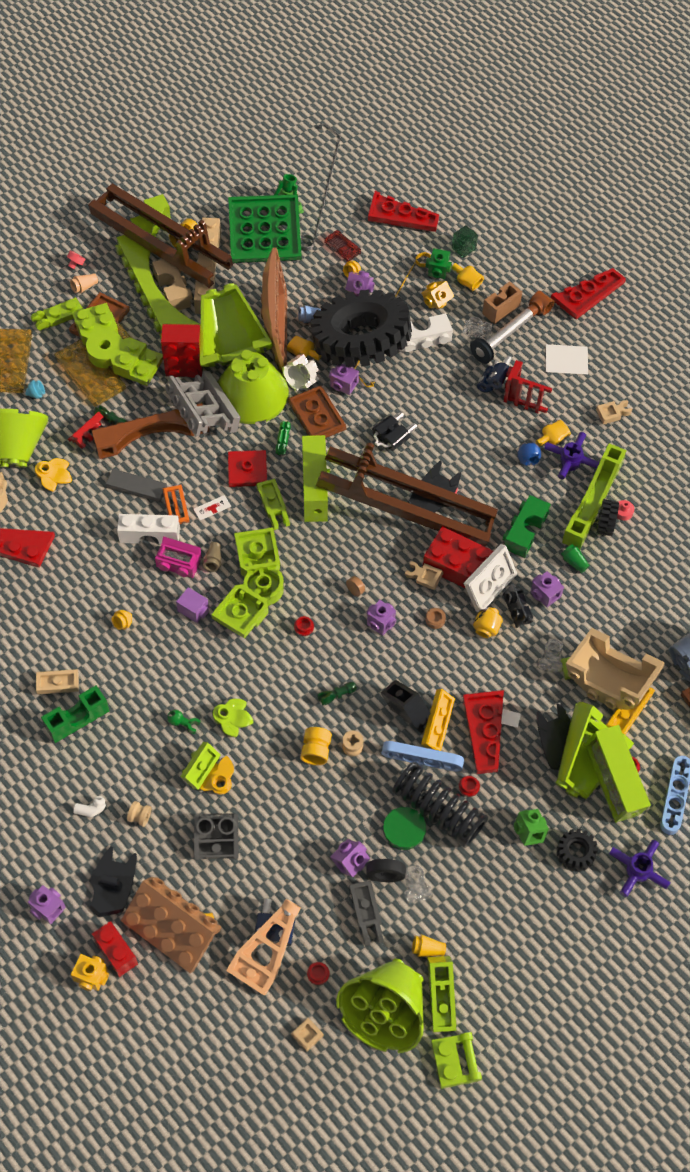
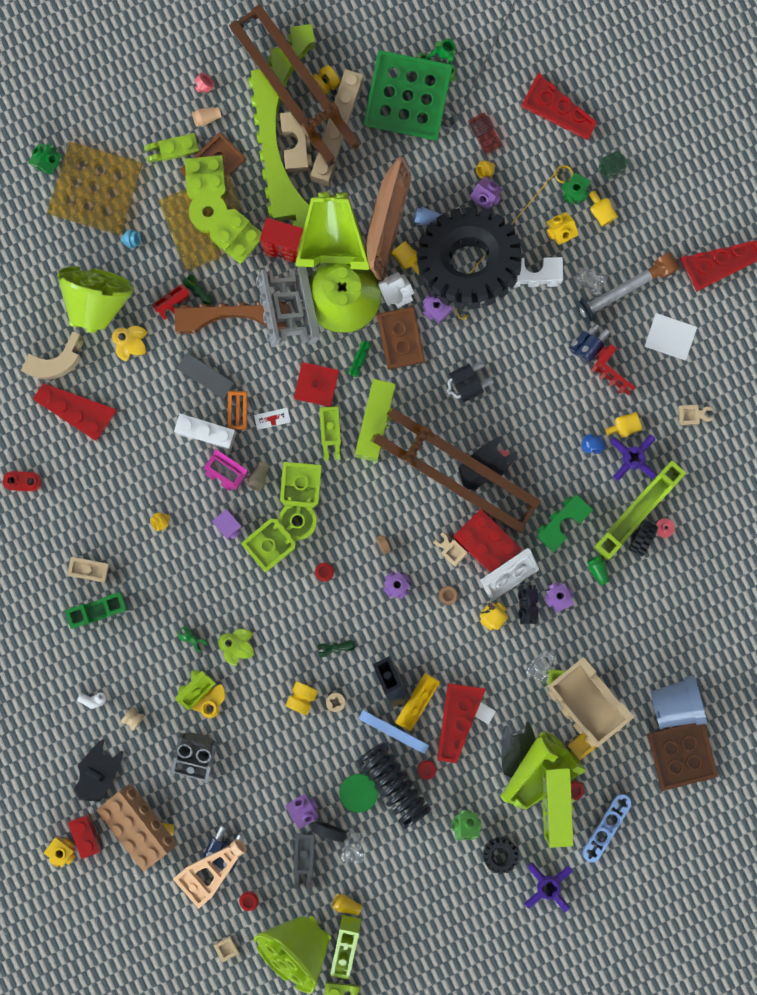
camera: 20 degrees right, 25 degrees up
(46, 904) = (29, 784): medium lavender brick -> none
(500, 305) = (632, 254): medium nougat brick -> none

